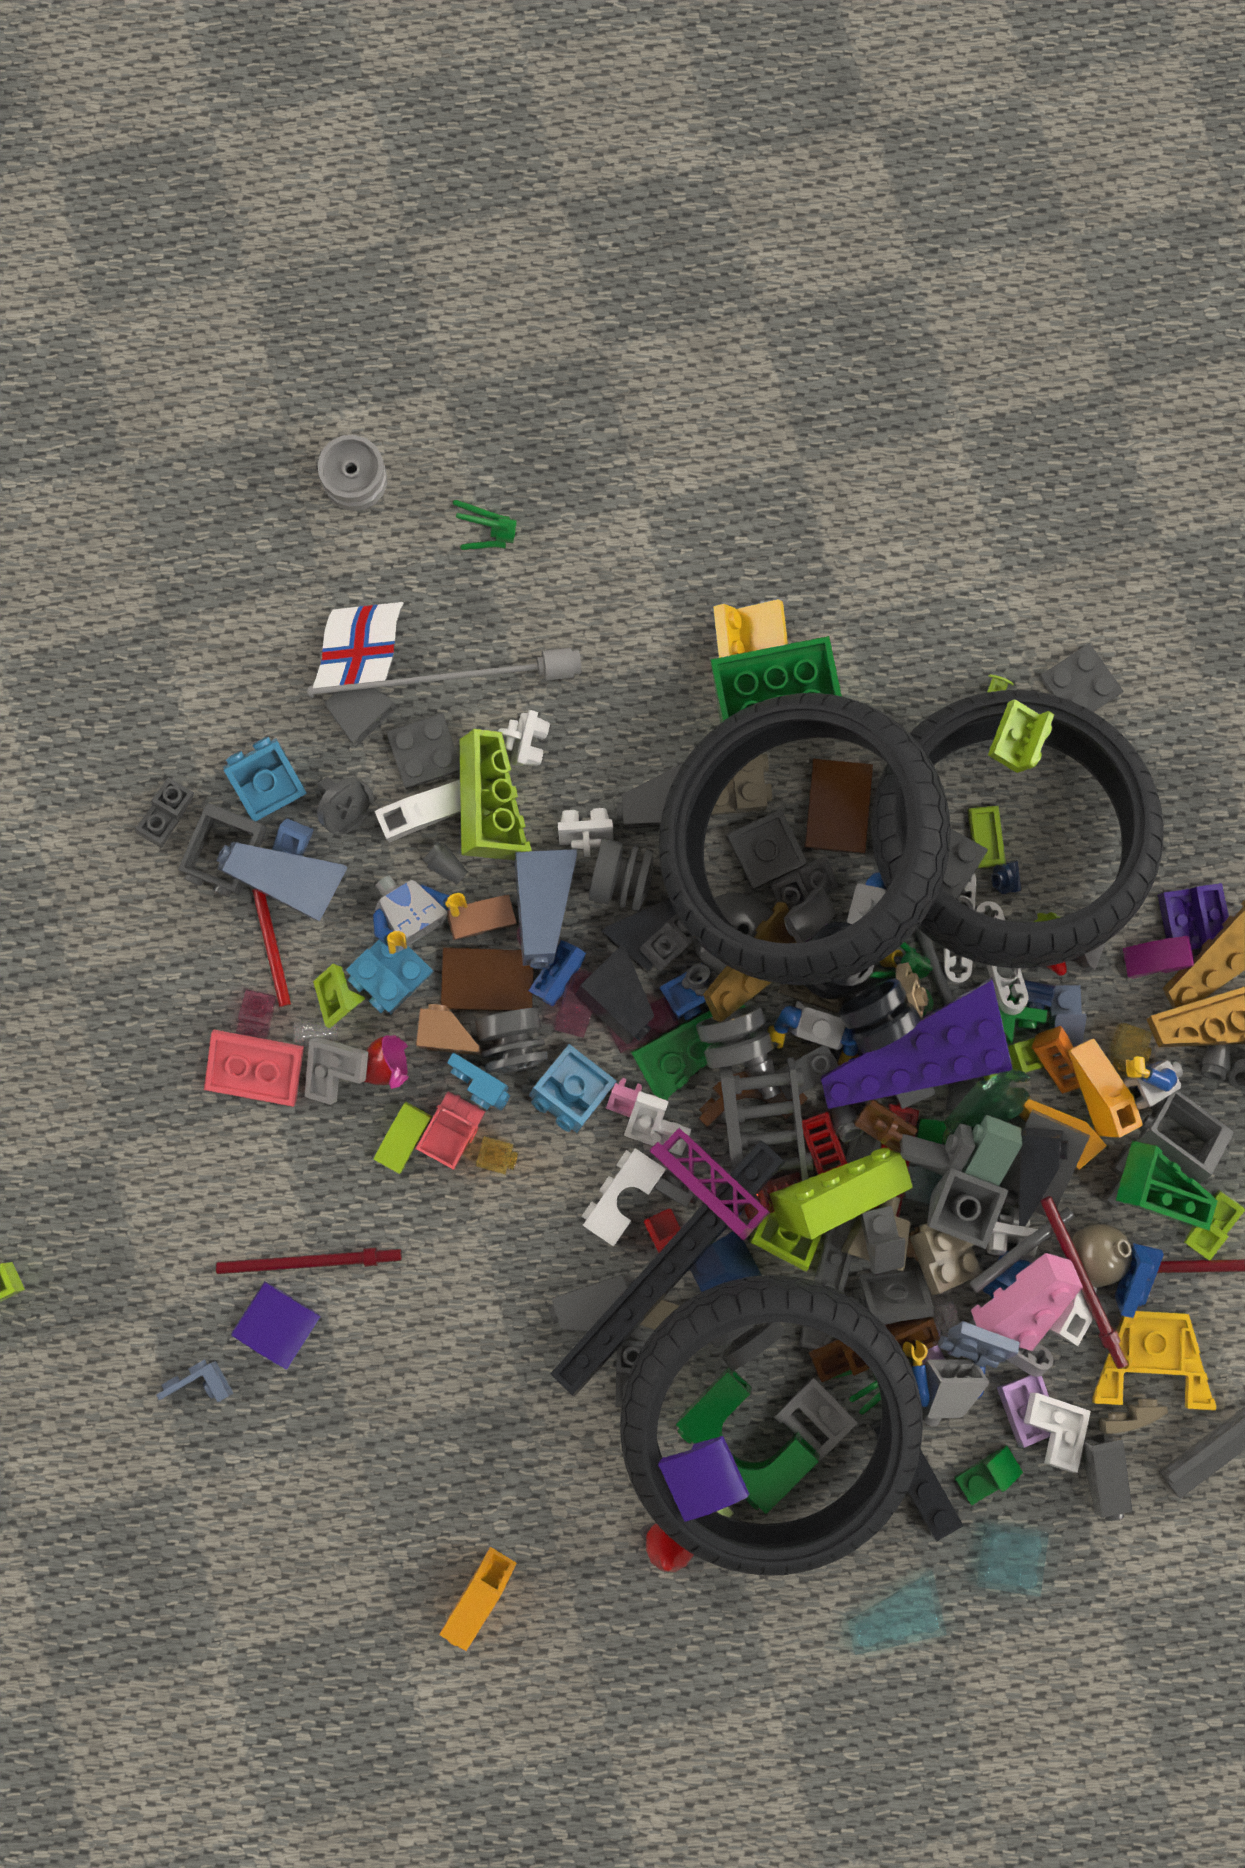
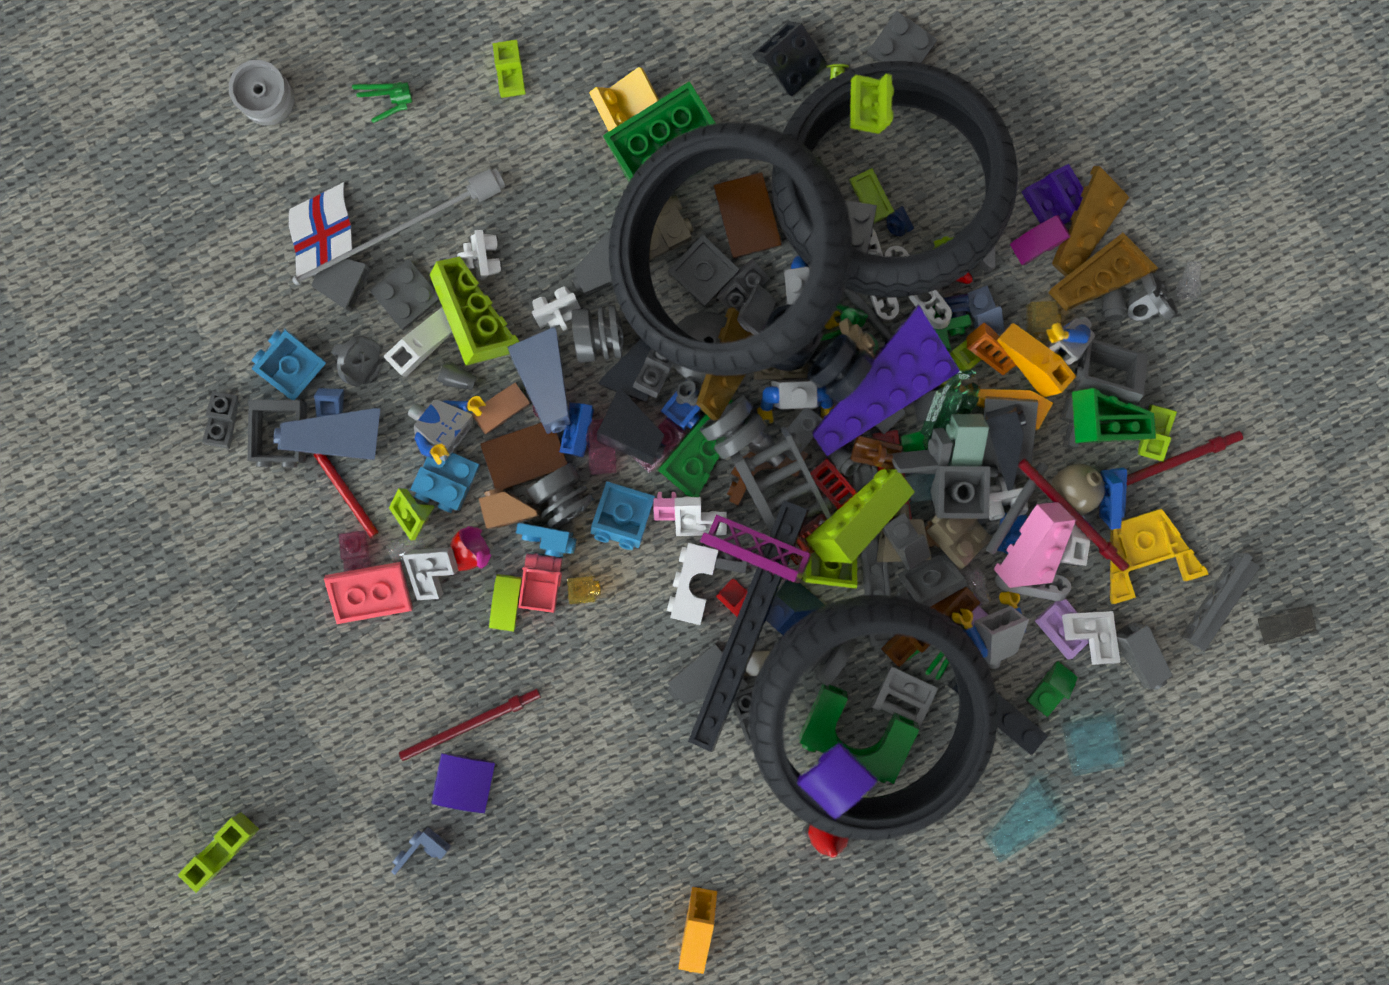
camera: 15 degrees left, 5 degrees up
(634, 546) = (509, 68): none -> lime slope
(953, 650) = (791, 57): none -> black bracket
(978, 1345) = (1010, 594): sand blue plate -> none
(1140, 1415) = (1152, 600): dark tan slope -> none

